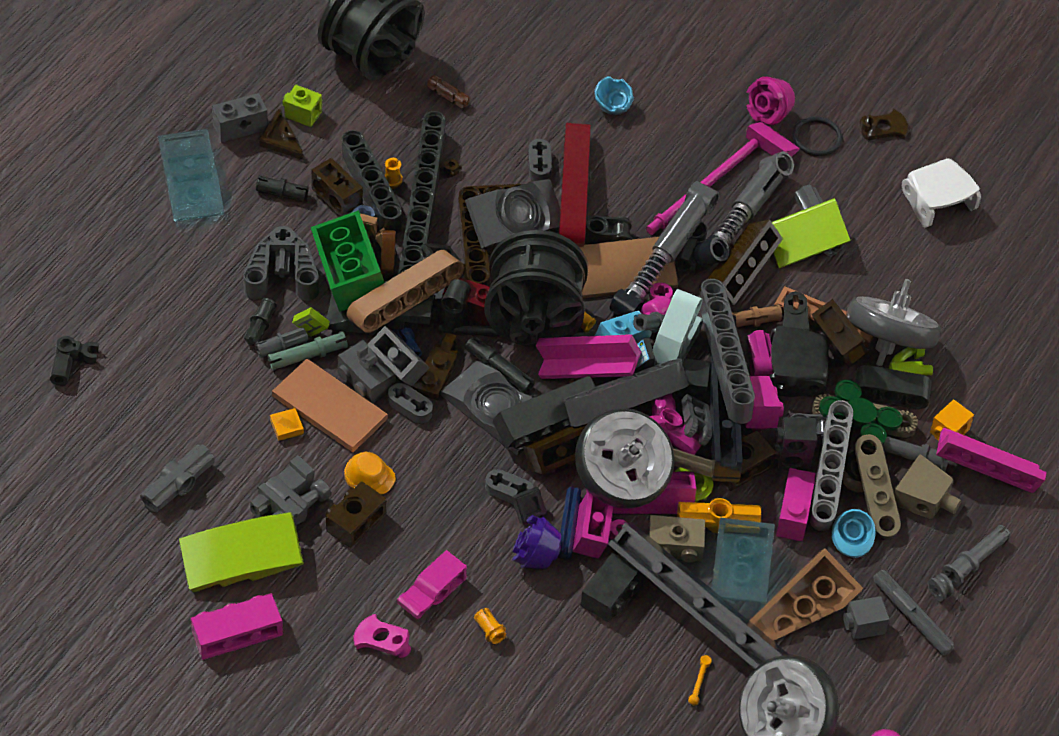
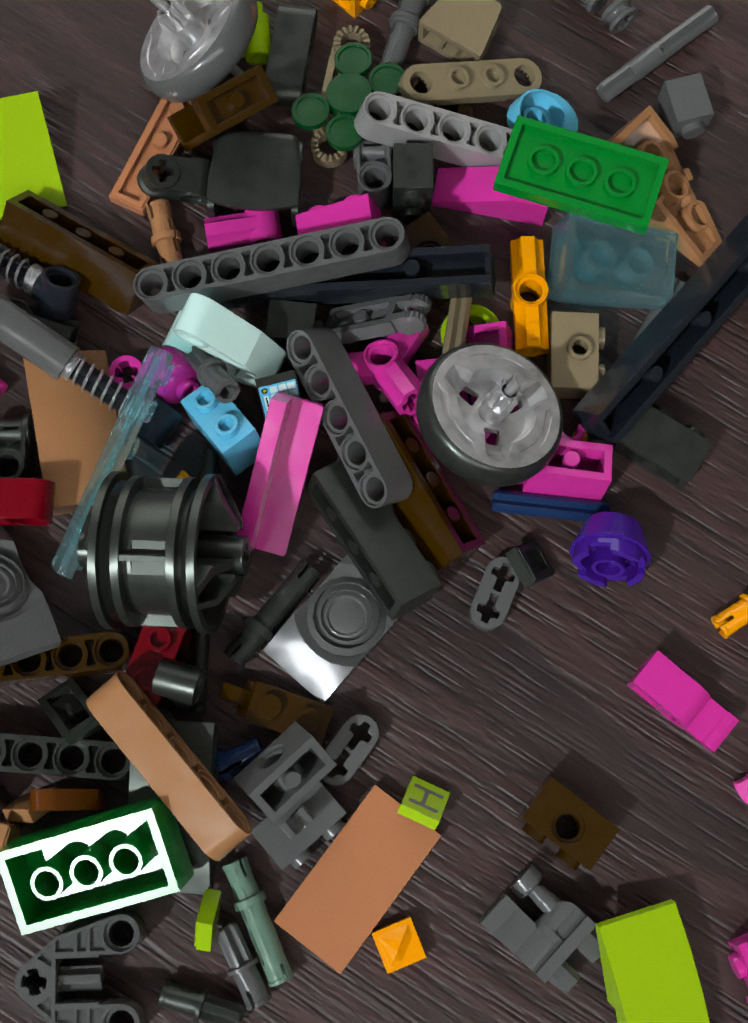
camera: 90 degrees left, 25 degrees up
(371, 470) = (482, 806): light orange hat -> none
(374, 437) = (423, 803): none -> lime tile
(631, 283) = (120, 446): none -> clear light blue plate
(799, 527) = (581, 174): none -> green plate

